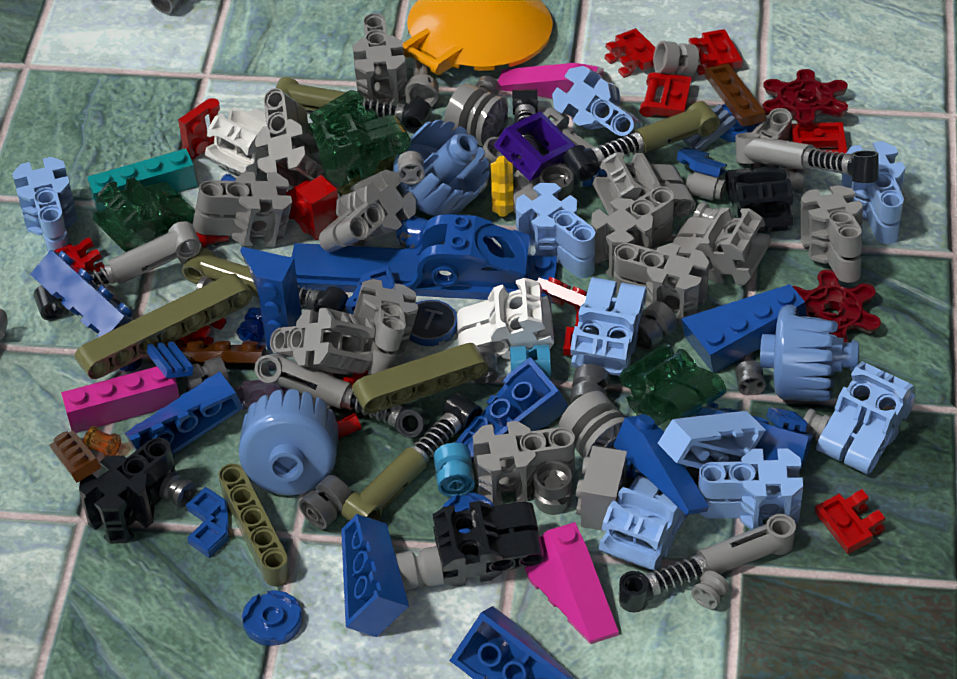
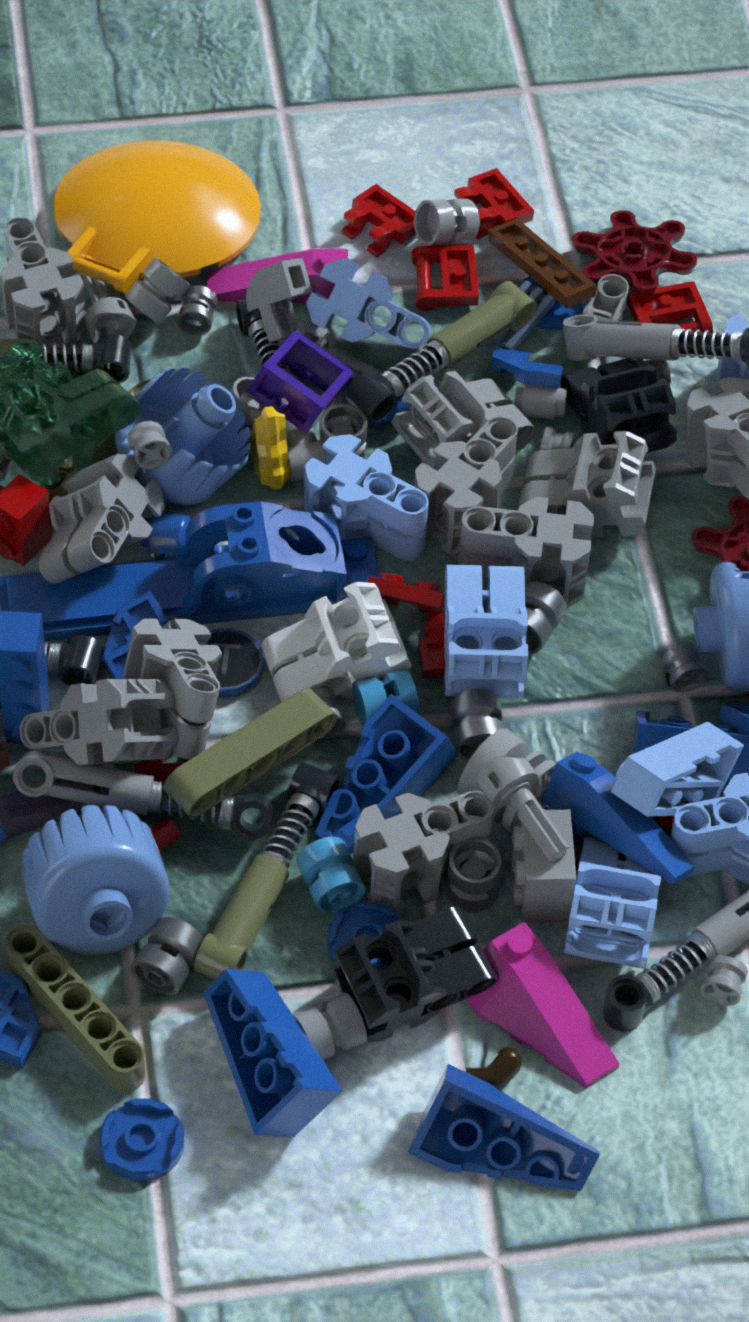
camera: 20 degrees left, 5 degrees up
(462, 71) = (157, 290): none -> light grey wheel
(477, 112) = (193, 344): light grey wheel -> none
(532, 619) = (501, 1070): none -> dark brown arm
(533, 84) = (272, 293): none -> light grey brick
(588, 429) = (513, 788): none -> light grey piece
(670, 385) = (594, 703): clear green connector -> none
(736, 328) = (653, 599): blue wedge -> none

